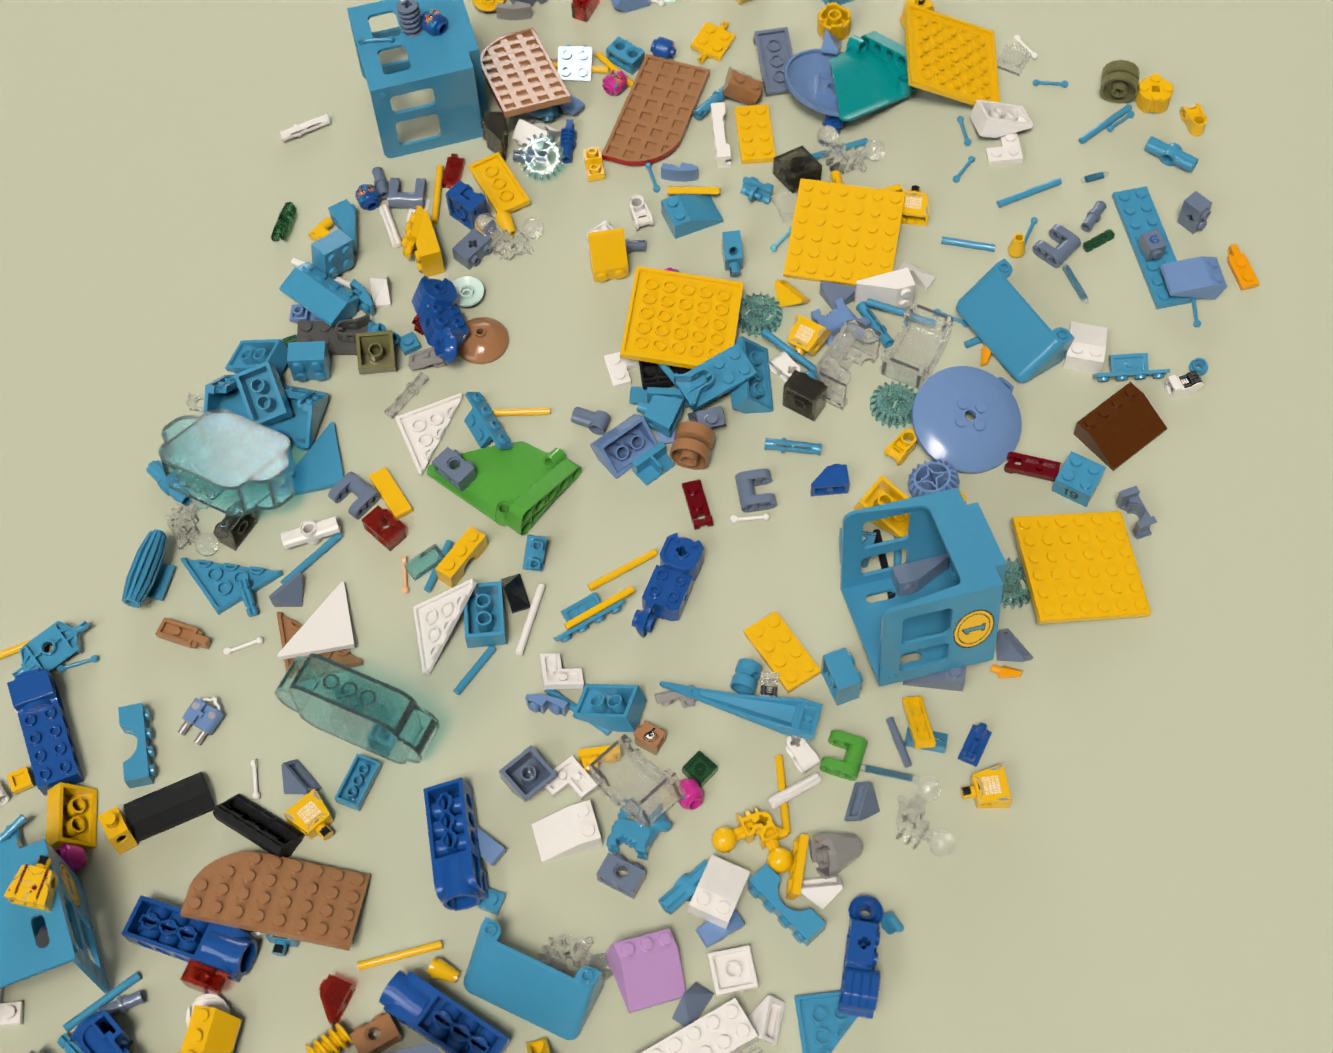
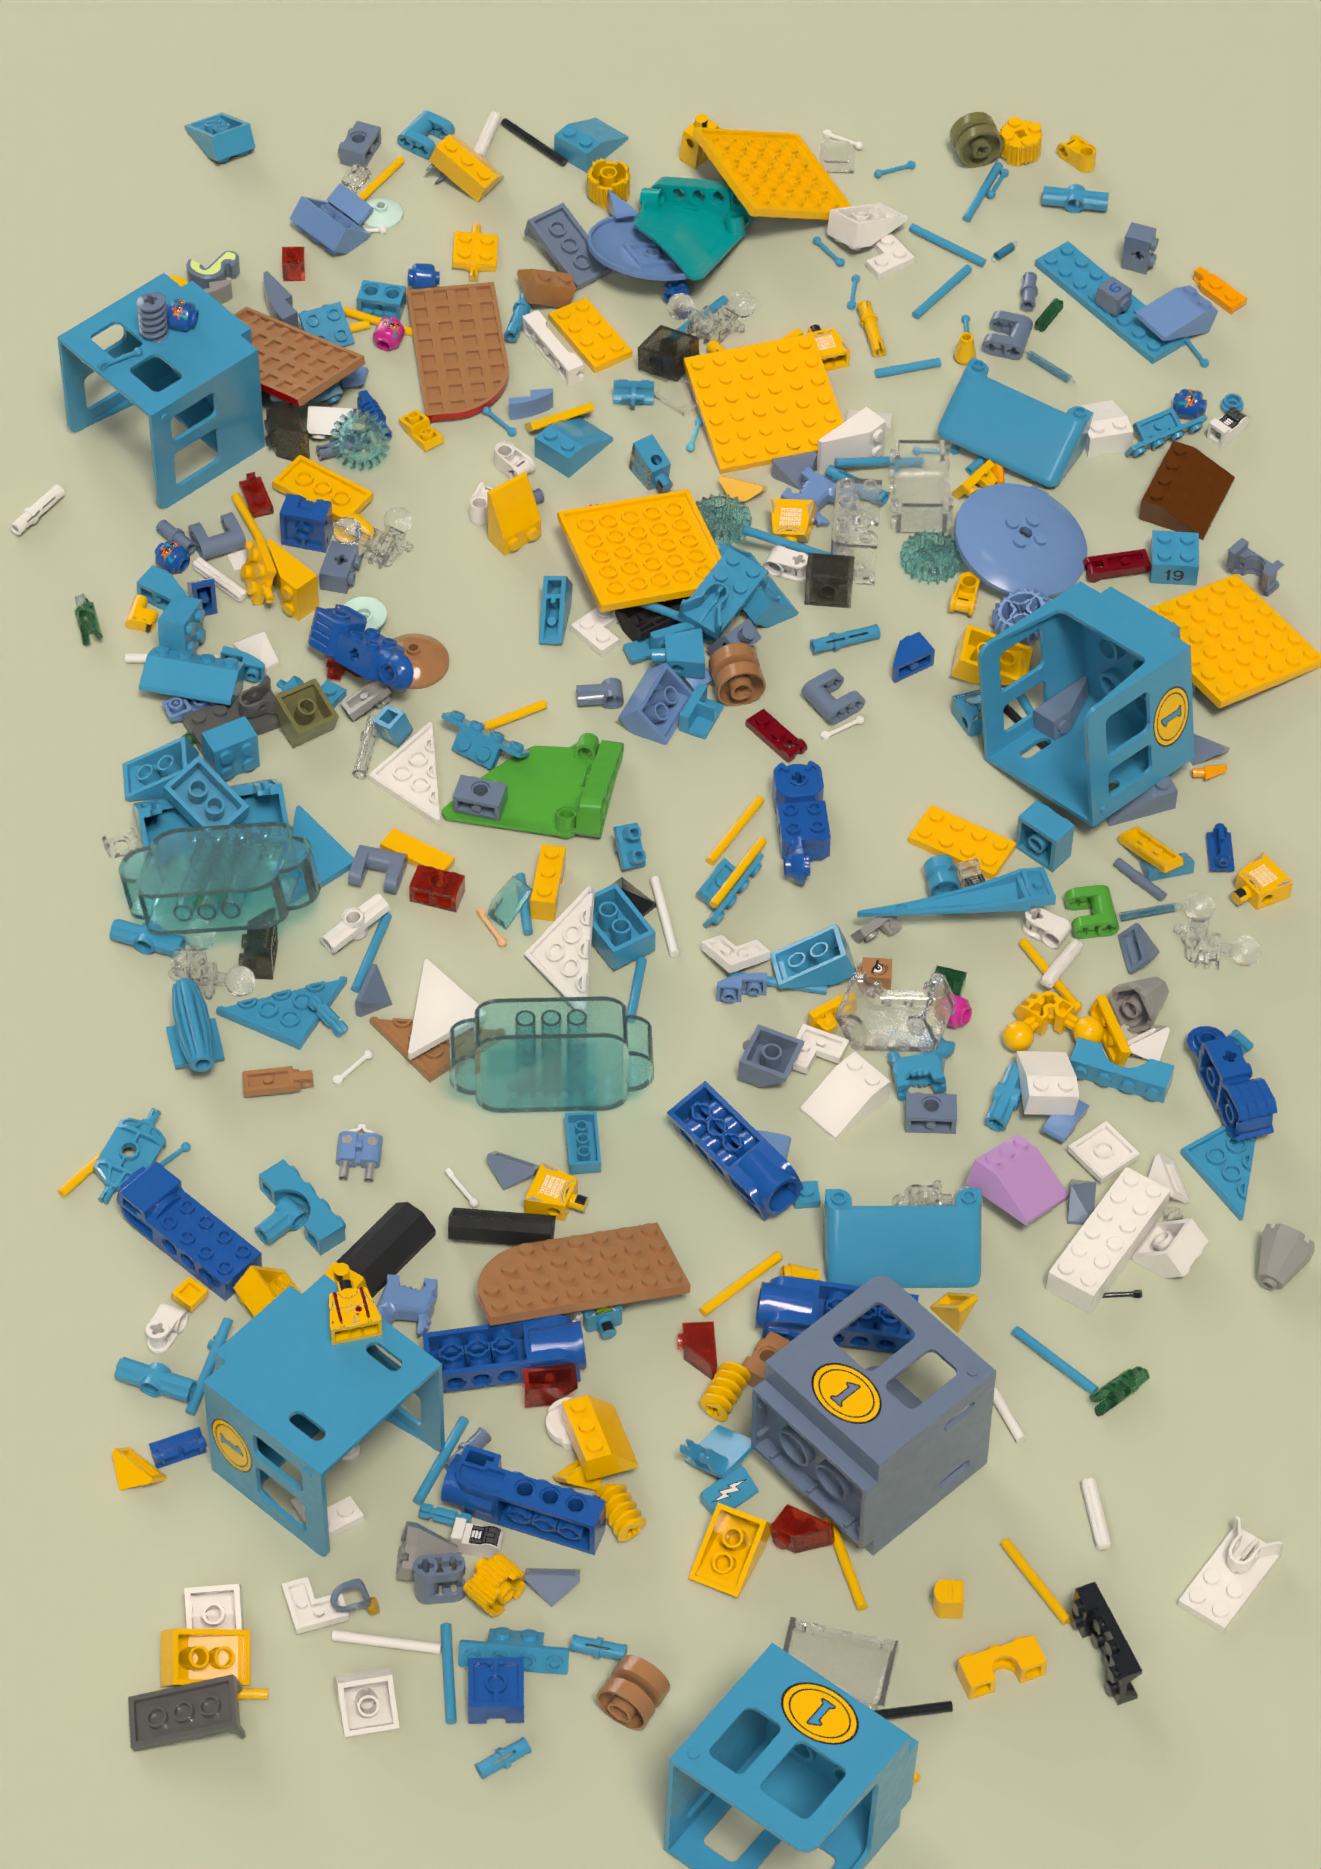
camera: 30 degrees left, 10 degrees down
(121, 749) = (285, 1217): none -> dark azure piece
(152, 858) = (407, 1303): none -> medium blue animal
(366, 234) = (204, 590): none -> blue slope
(430, 386) = (392, 725): none -> dark azure brick
(554, 33) = (279, 301): none -> sand blue slope
(598, 340) = (555, 609): none -> dark azure slope
(960, 197) = (869, 322): none -> yellow pin
(971, 353) = (982, 476): none -> yellow hinge
(1054, 157) = (947, 245): none -> dark azure bar
(1164, 354) = (1189, 404): none -> blue head

